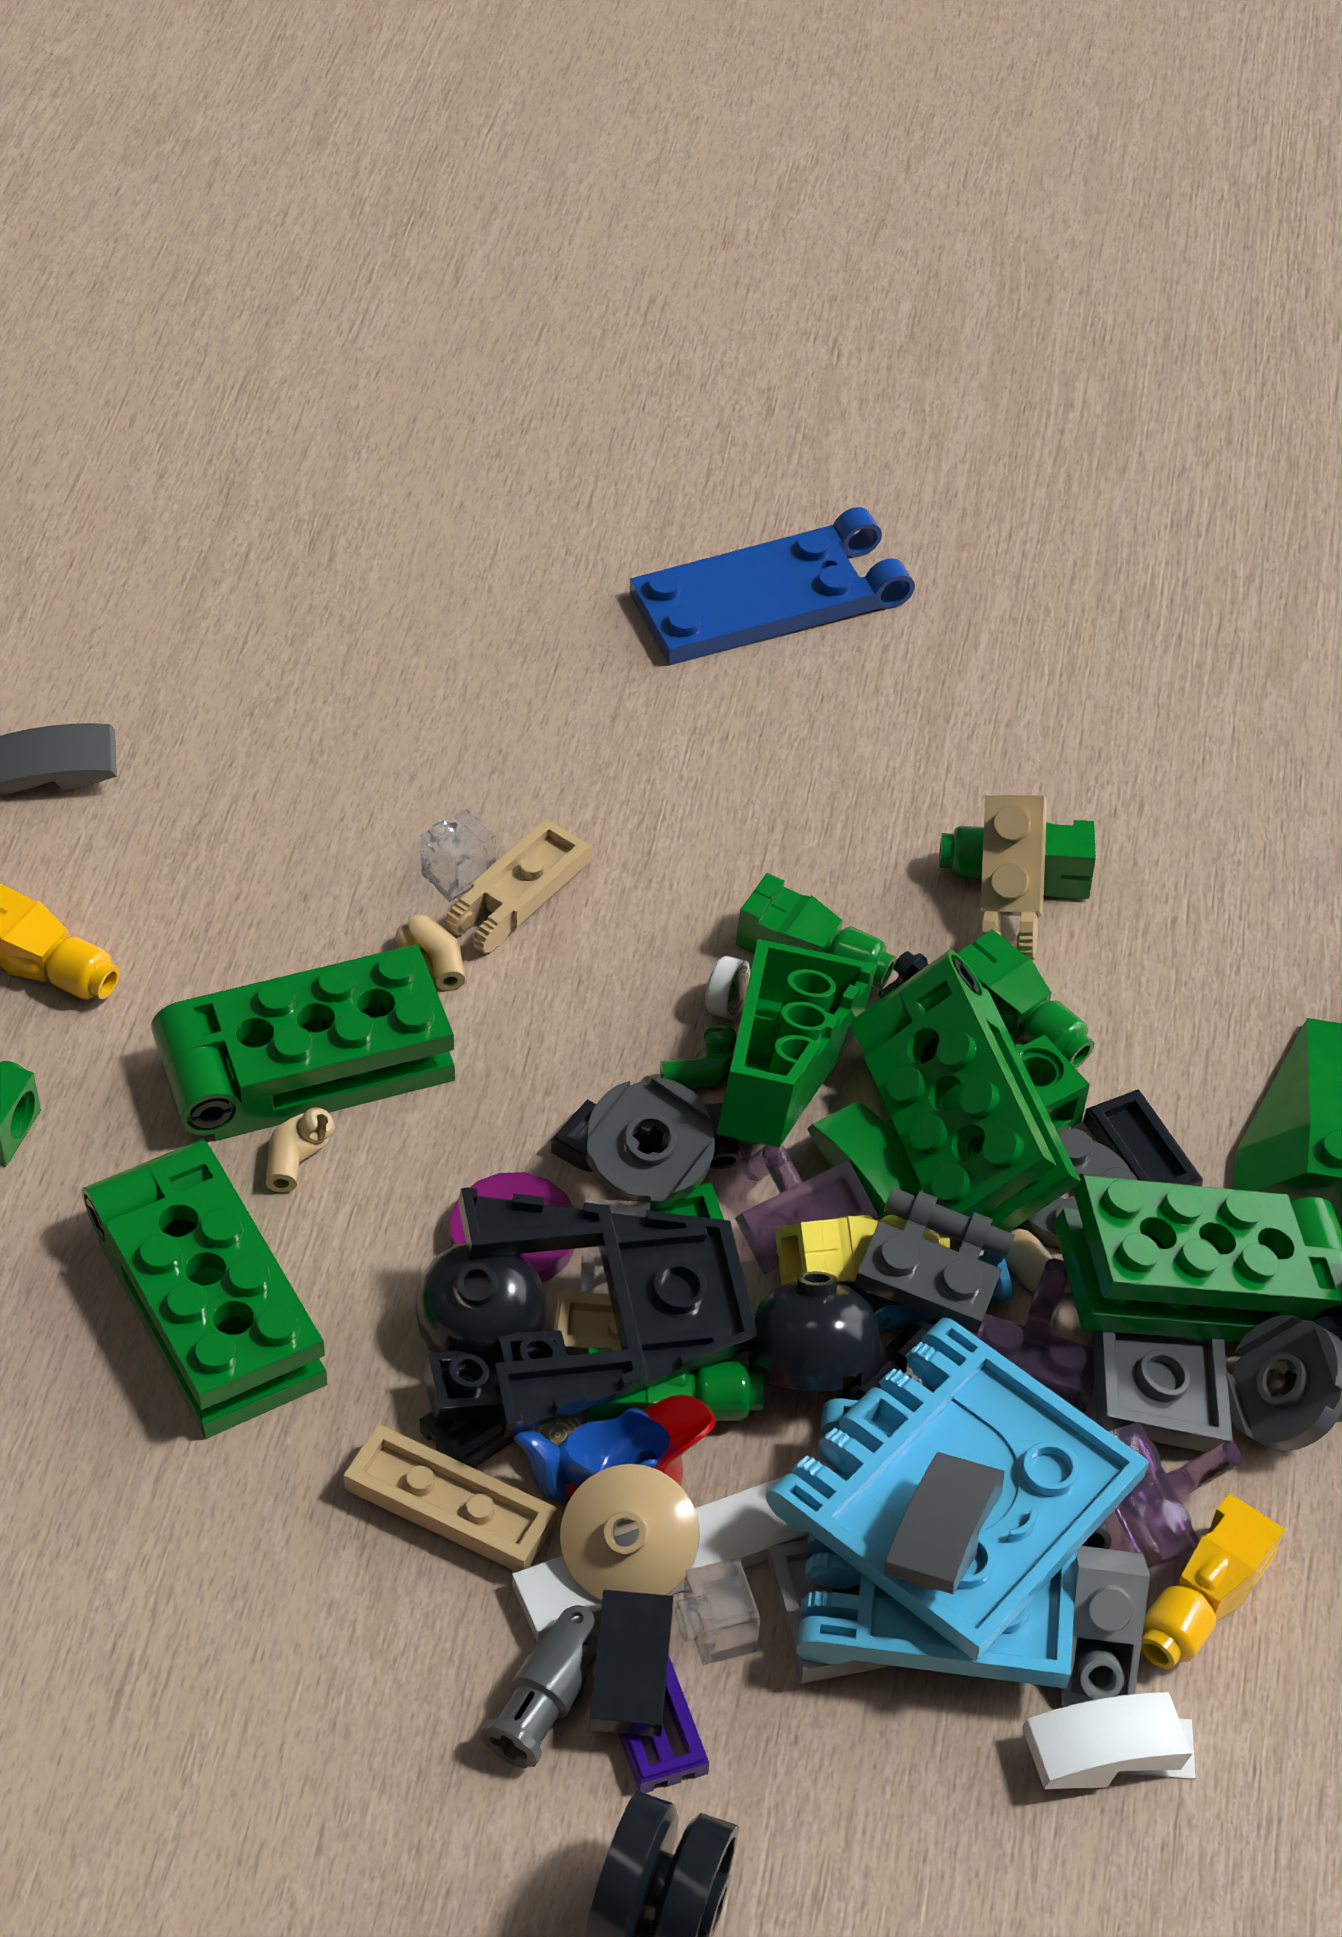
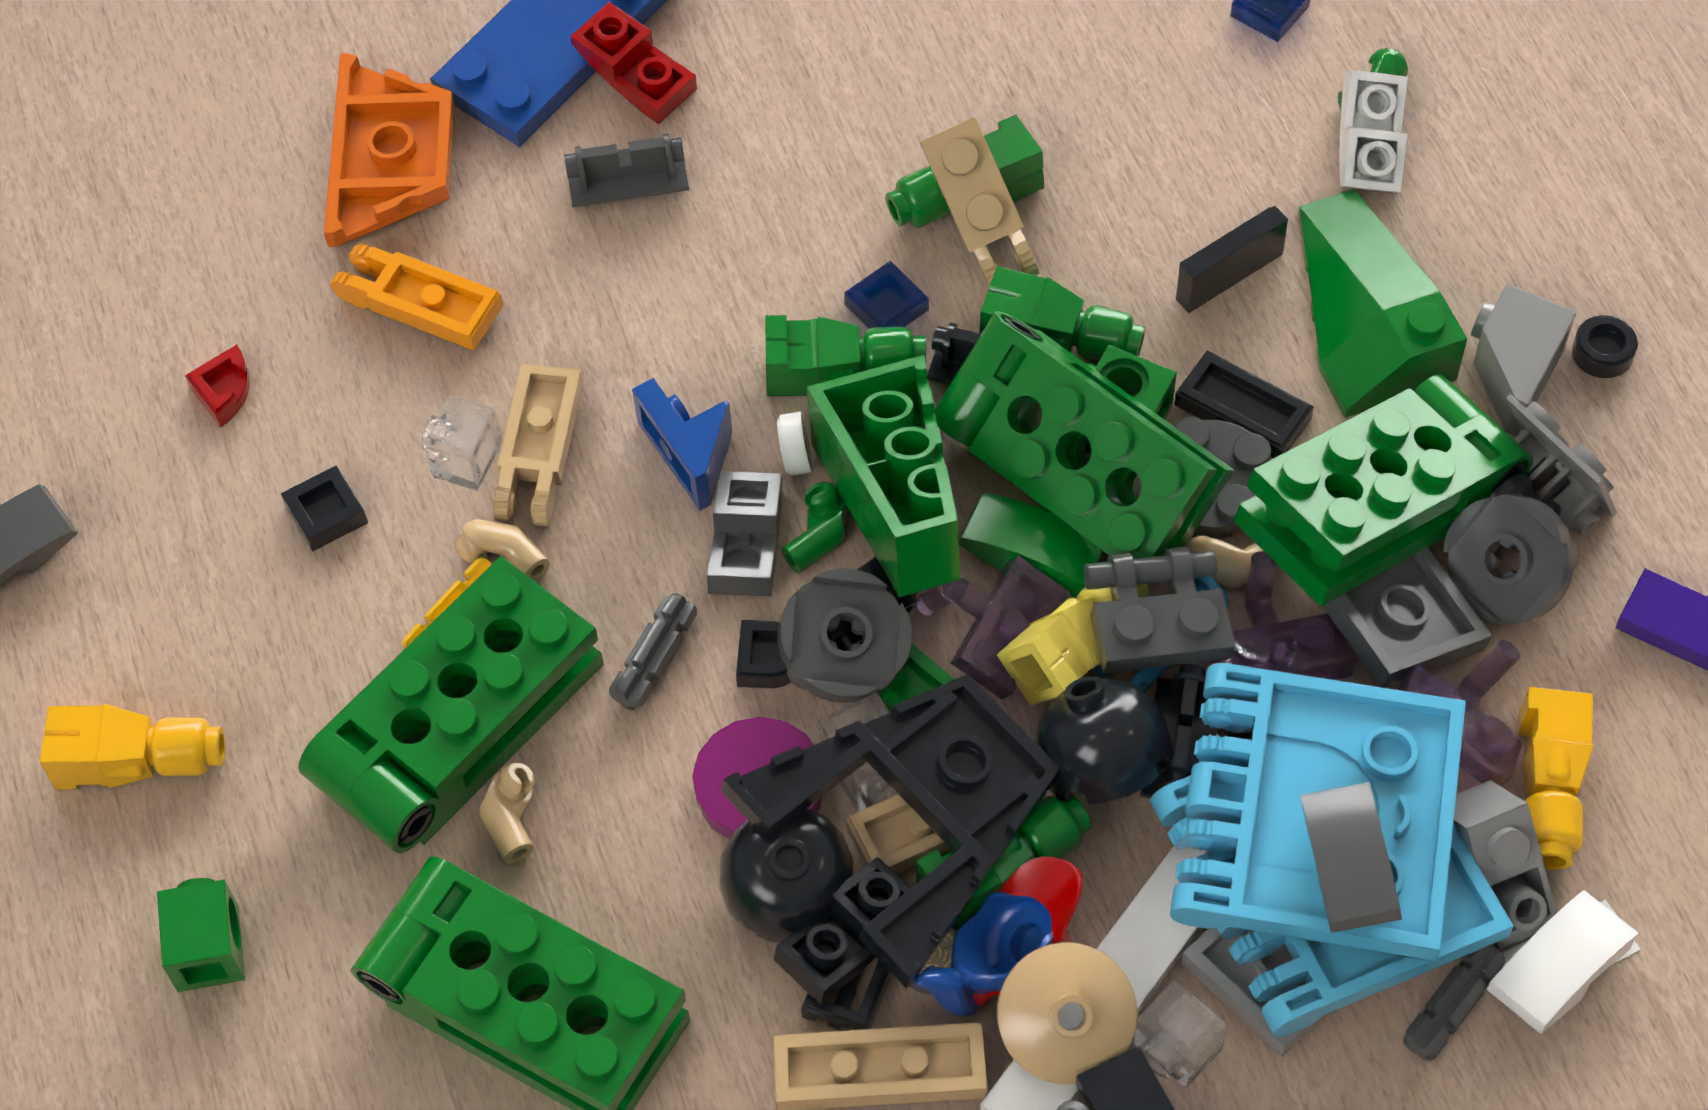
camera: 25 degrees left, 10 degrees up
(306, 726) = (221, 384): none -> red tile
(317, 853) = (324, 508): none -> black tile
(498, 1087) = (653, 651): none -> dark grey axle
(505, 733) = (419, 295): none -> light orange hinge
(555, 615) = (386, 150): none -> orange wing
(644, 947) = (689, 446): none -> blue slope
(644, 1034) = (745, 533): none -> dark grey slope
(752, 724) = (636, 172): none -> dark grey hinge
(802, 641) = (625, 57): none -> red slope
(889, 917) = (886, 298): none -> clear blue tile
(984, 1721) = (1453, 1002): none -> dark grey axle
(1210, 1026) = (1231, 258): none -> black tile

